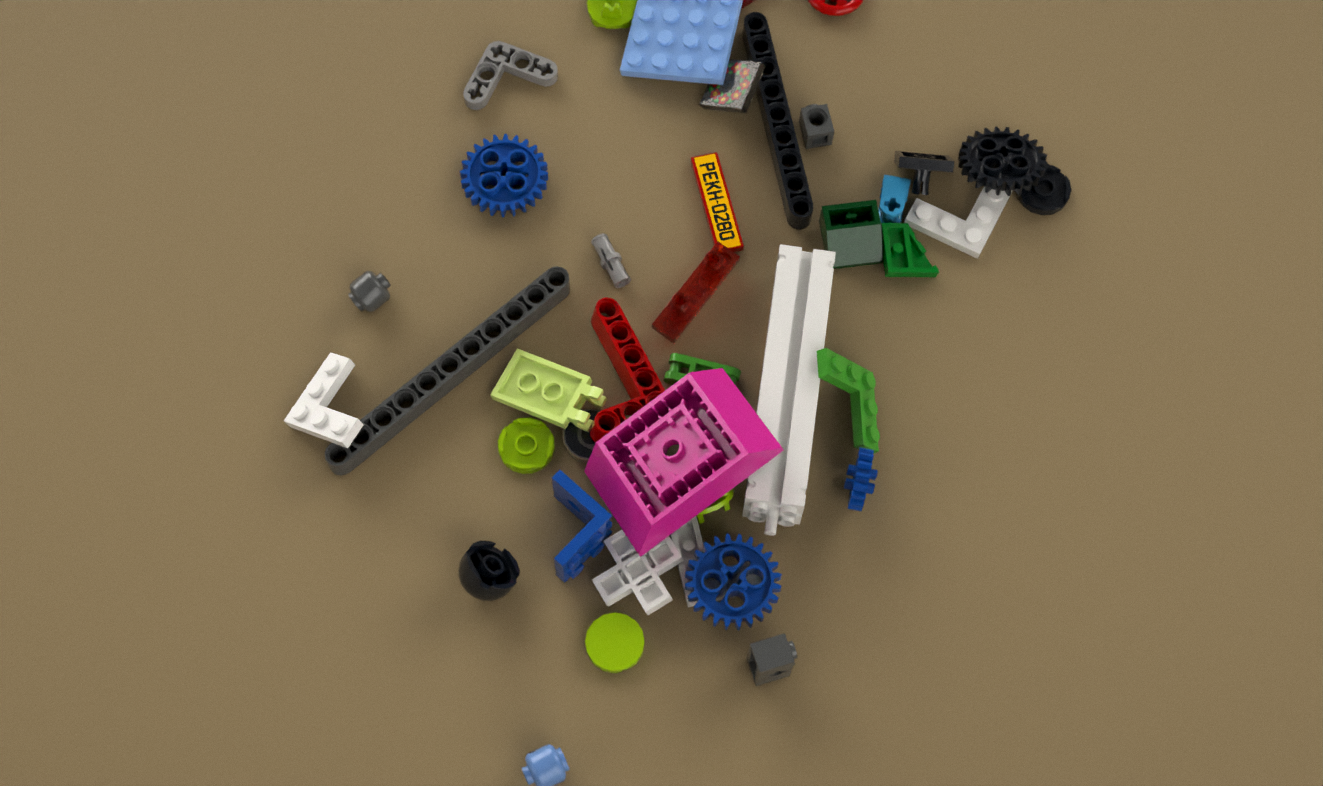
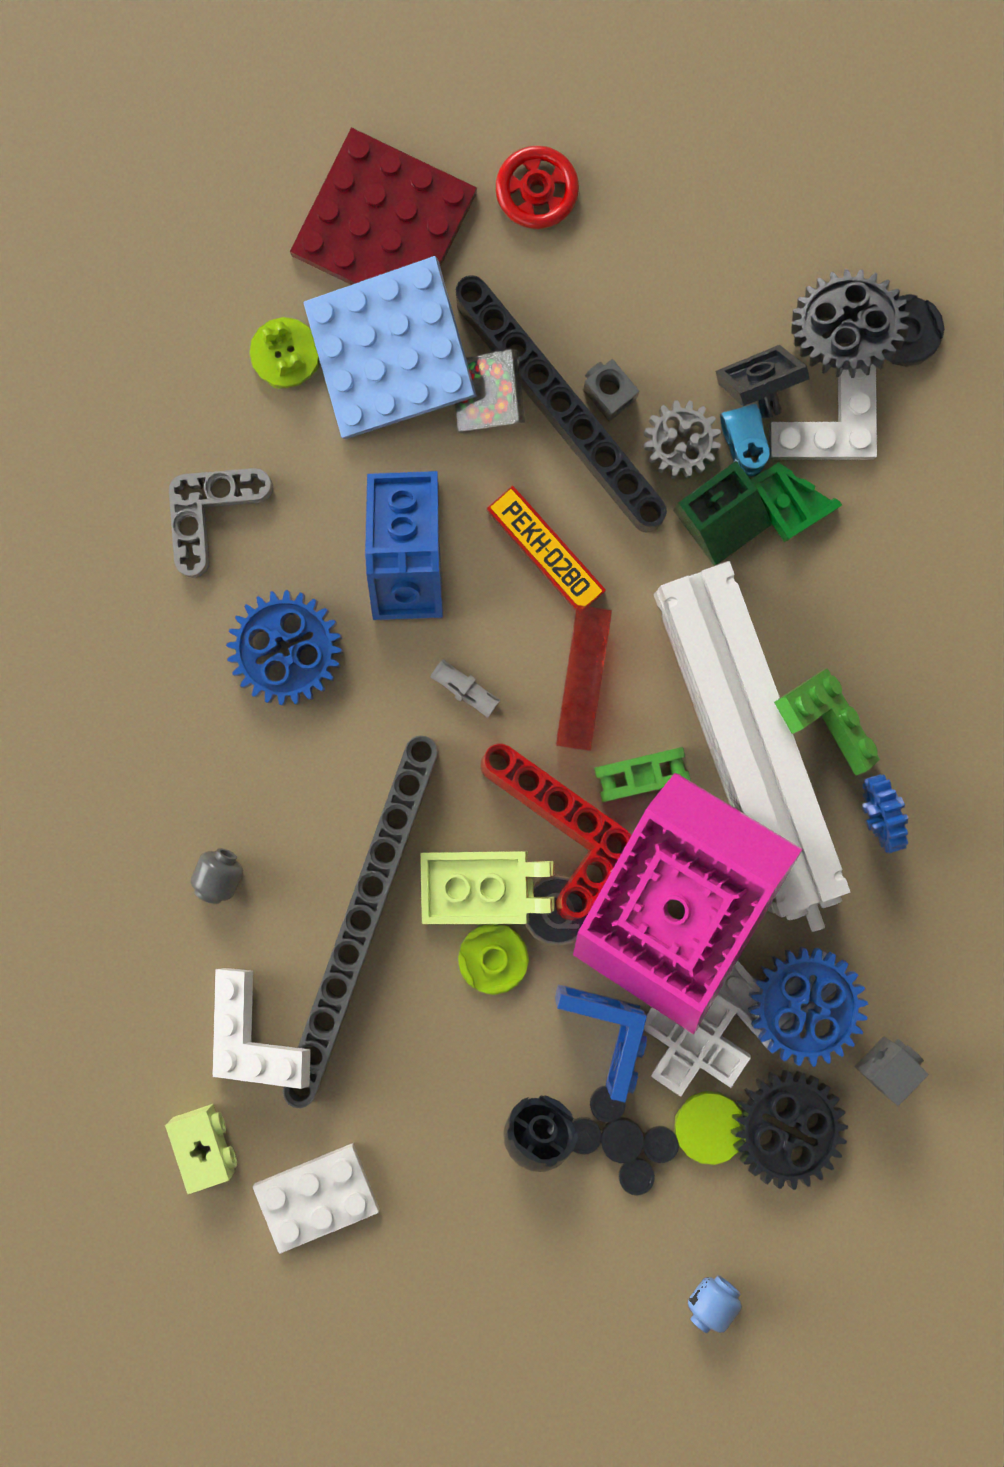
camera: 30 degrees left, 20 degrees up
(240, 449) = (197, 1166): none -> yellowish green brick
(302, 542) = (316, 1198): none -> white plate
(545, 618) = (624, 1142): none -> black piece
(618, 153) = (403, 545): none -> blue bracket
(695, 656) = (774, 1157): none -> black gear
(836, 169) = (662, 435): none -> light grey gear

